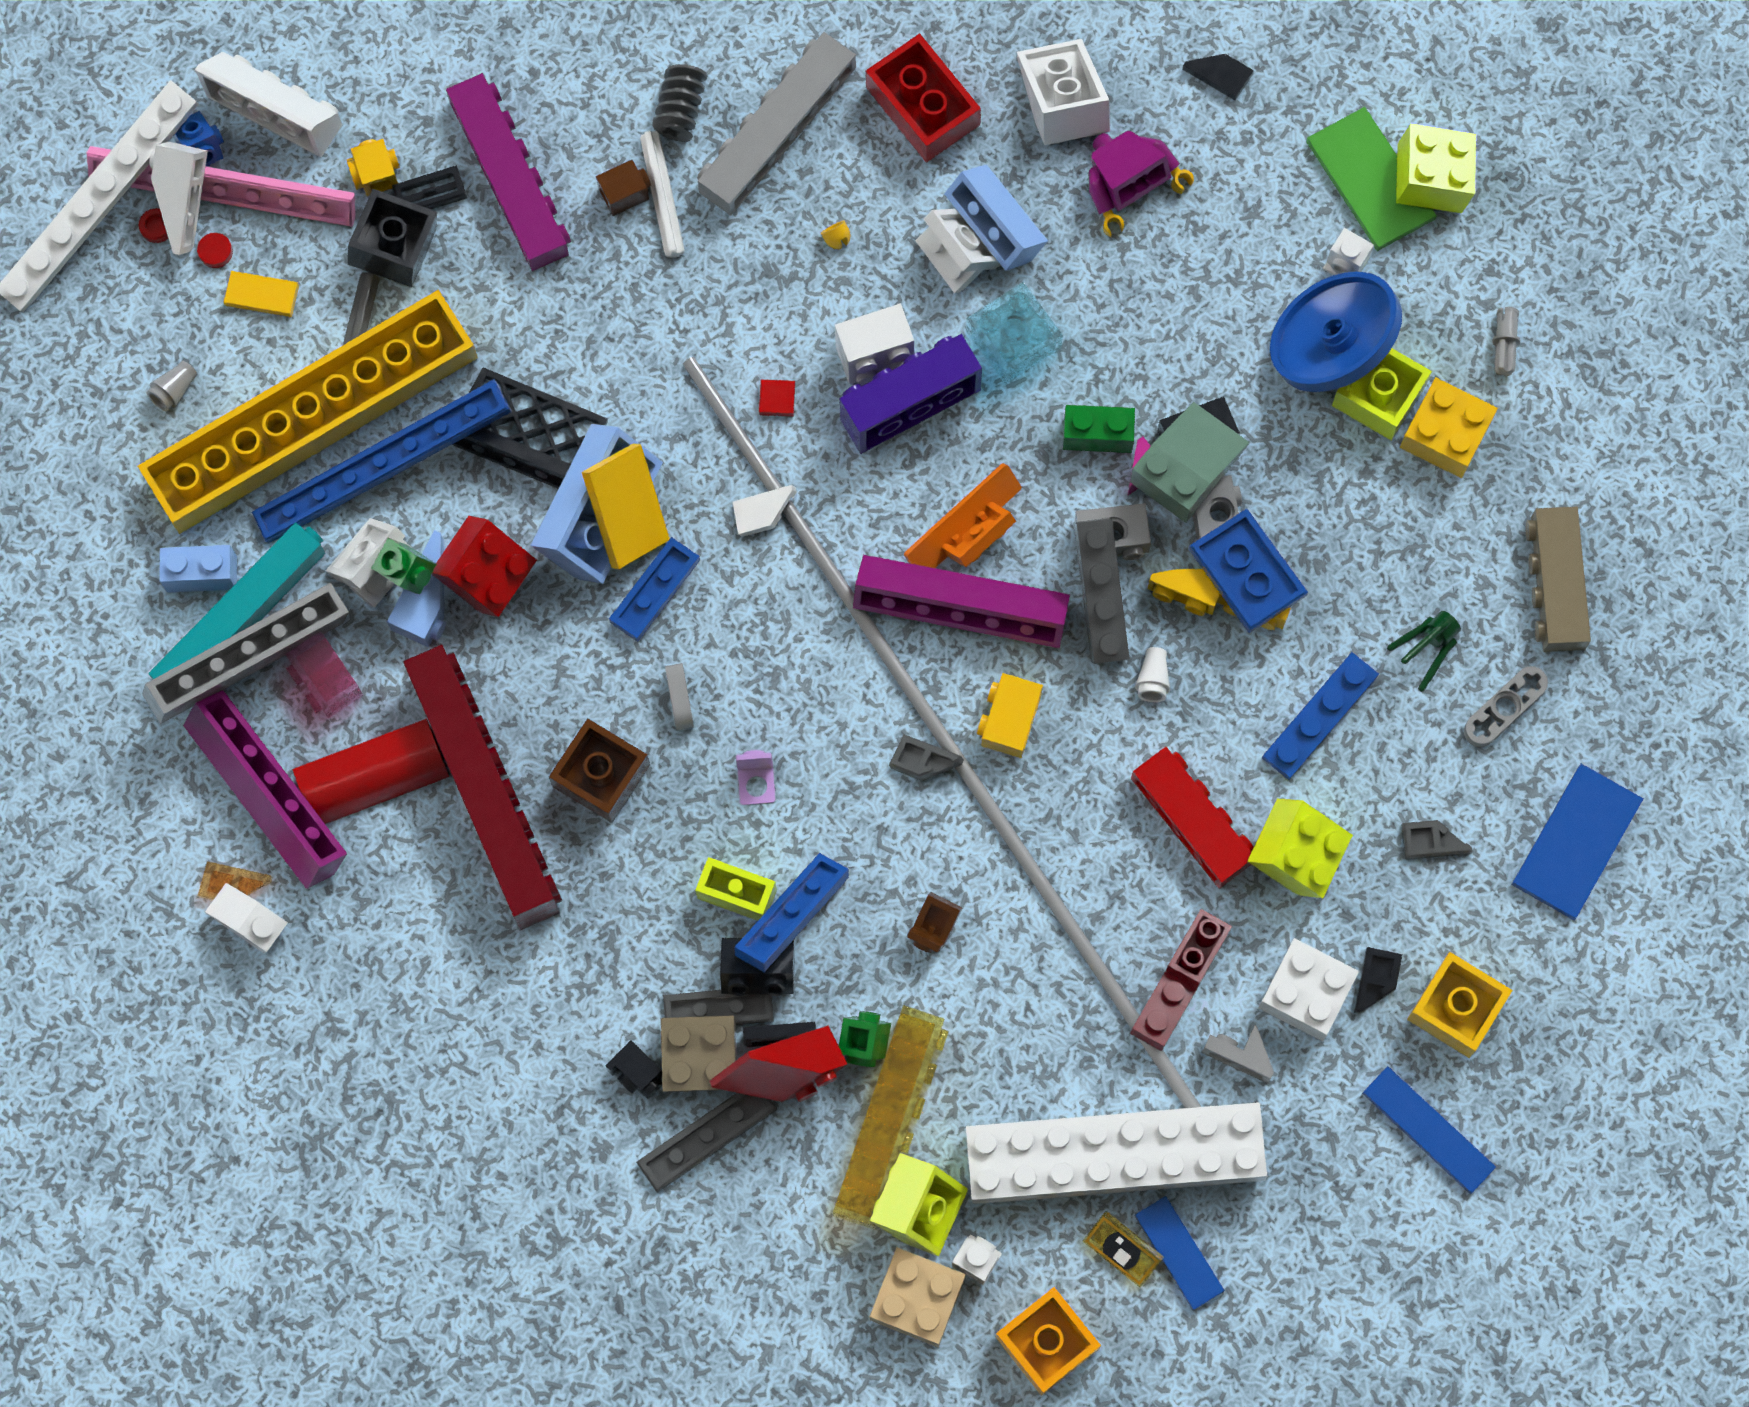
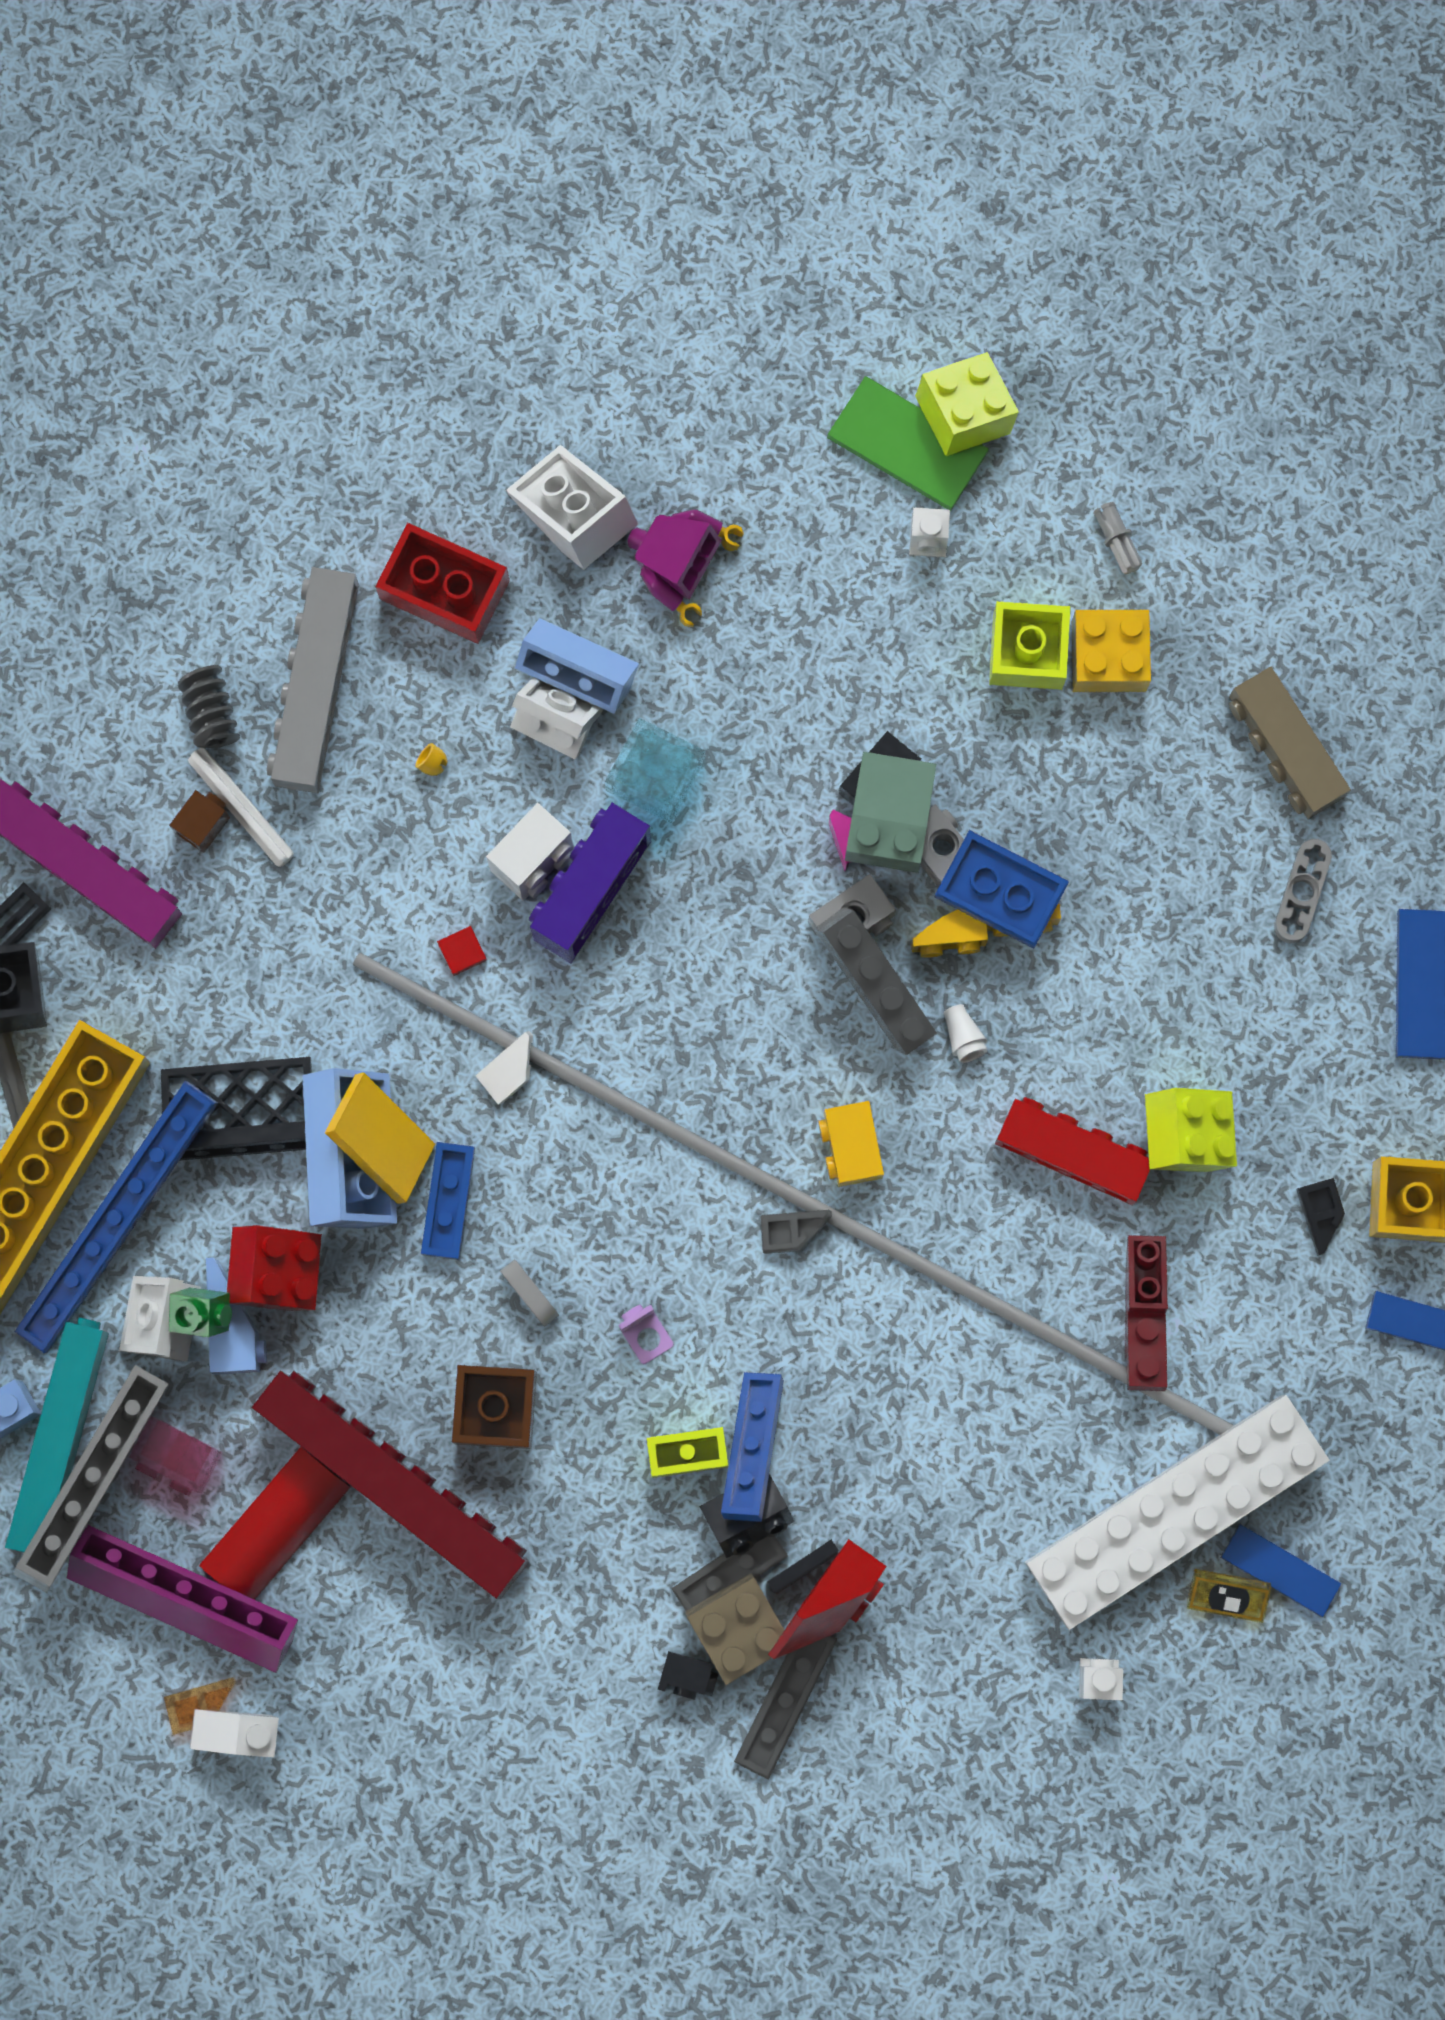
camera: 30 degrees left, 5 degrees up
(864, 1038) = (885, 1529): green brick -> none
(890, 1113) = (948, 1591): clear yellow brick -> none
(917, 1297) = (1066, 1747): tan brick -> none
(918, 1204) = (1022, 1661): neon yellow brick -> none
(934, 923) = (889, 1383): reddish brown bracket -> none
(961, 601) = (747, 1059): magenta brick -> none
(970, 524) = (715, 981): orange bracket -> none
(1047, 1341) = (1209, 1722): light orange brick -> none
(1099, 428) = (785, 822): green brick -> none
(1220, 73) = (711, 411): black tile -> none
(1250, 1060) = (1249, 1352): light grey slope -> none
(1308, 989) = (1268, 1259): white brick -> none
(1320, 716) = (1137, 990): blue plate -> none
(1336, 331) = (960, 614): blue dish -> none
(1431, 840) = (1301, 1055): dark grey tile -> none
(1437, 632) = (1204, 852): dark green plant -> none

